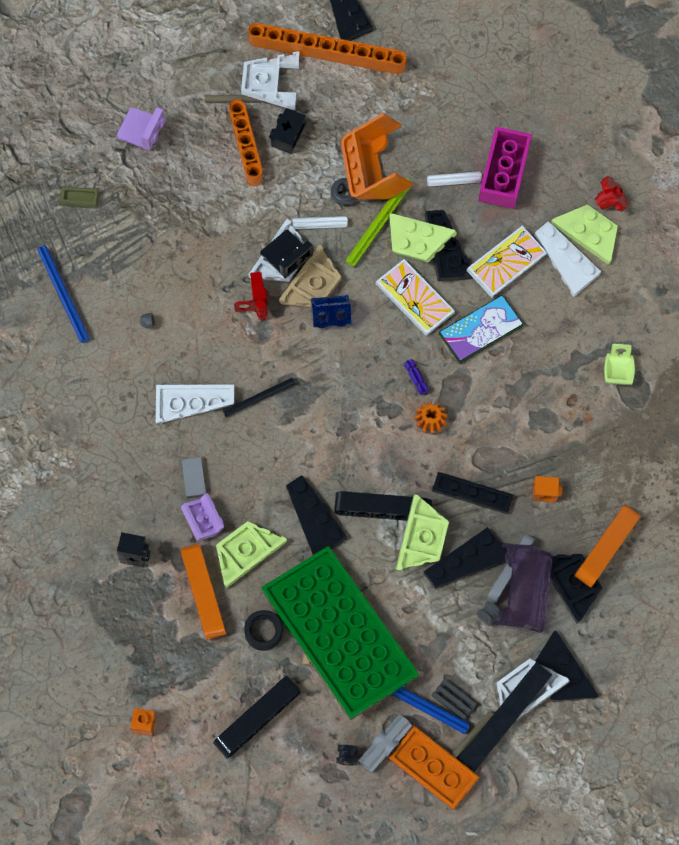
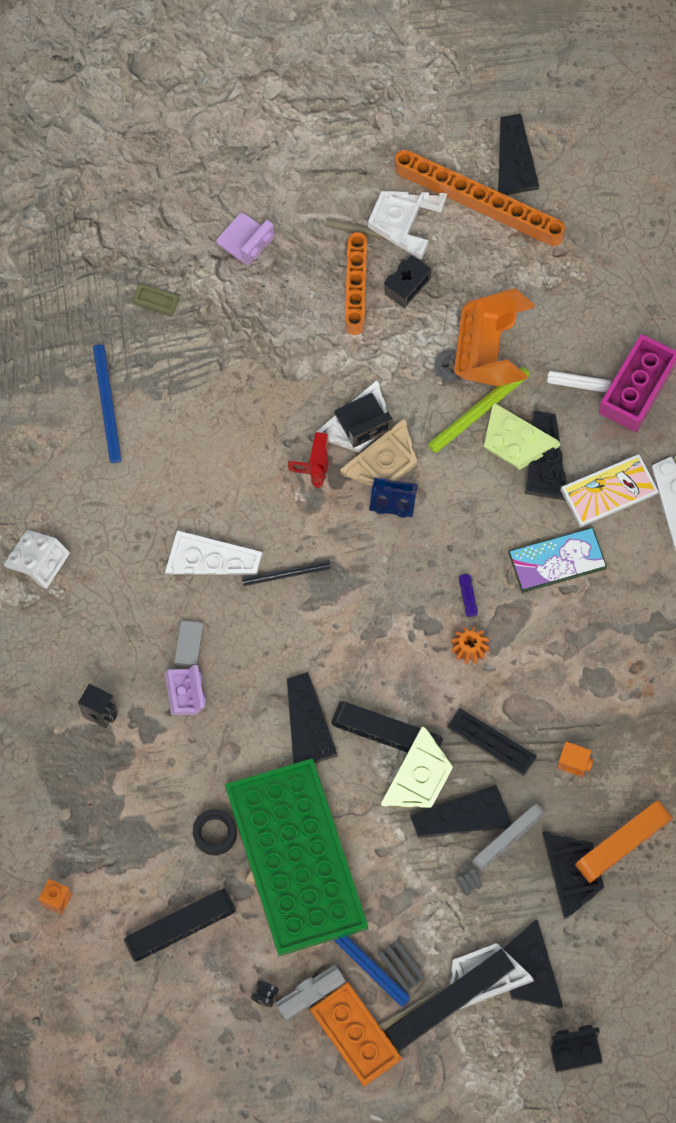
camera: 20 degrees right, 0 degrees up
(42, 437) = (37, 557): none -> white bracket
(147, 320) = (190, 457): dark grey hinge -> none
(202, 591) = (161, 771): orange beam -> none
(245, 550) = (221, 739): yellowish green wing -> none
(320, 222) = (412, 394): white axle -> none
(415, 297) = (494, 505): tile -> none
(527, 588) = (518, 867): clear purple windscreen -> none
(620, 729) = (575, 1049): none -> black bracket

